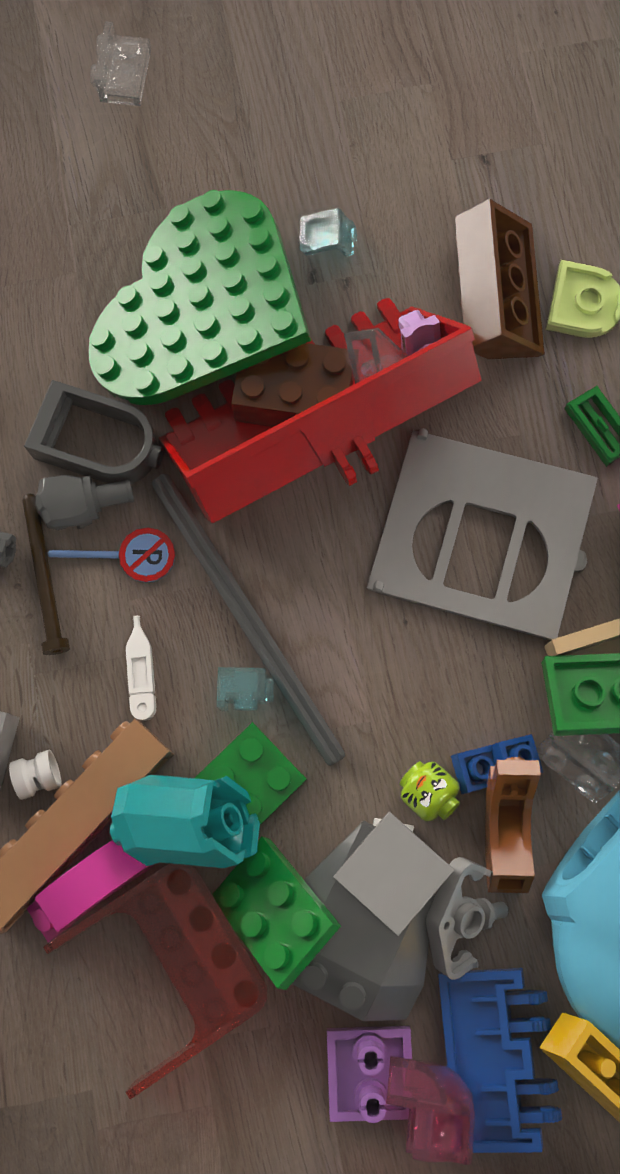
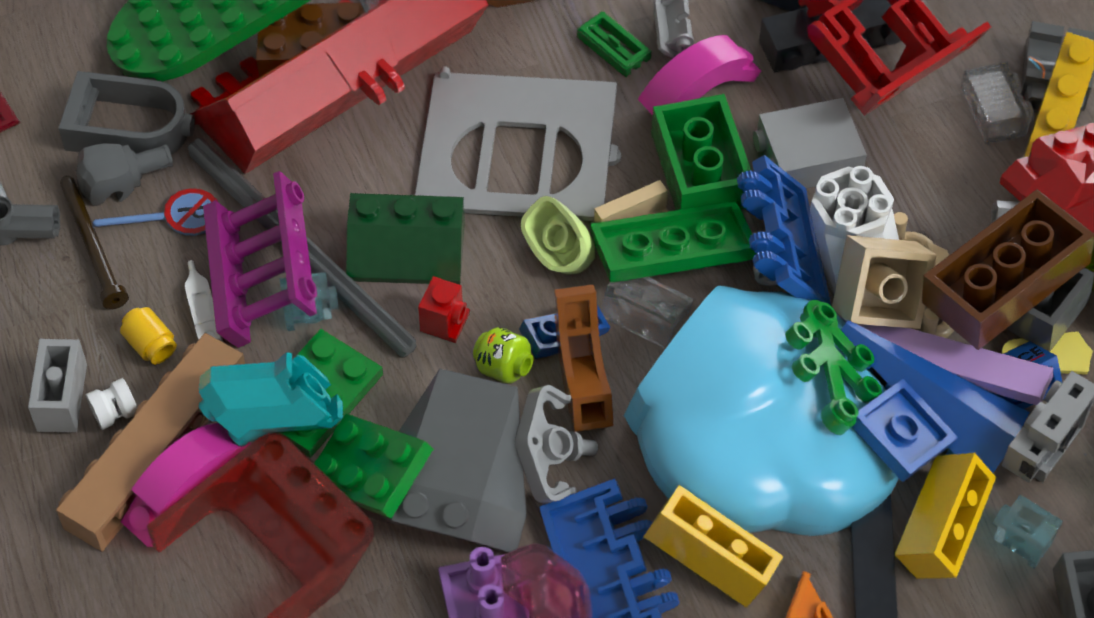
camera: 15 degrees left, 20 degrees down
(81, 699) = (148, 335): none -> yellow brick
(168, 640) = (227, 254): none -> magenta fence
(352, 633) = (404, 238): none -> dark green slope
(378, 726) = (443, 310): none -> red brick
(393, 873) = (475, 399): light grey tile -> none
(507, 661) = (557, 236): none -> yellowish green piece

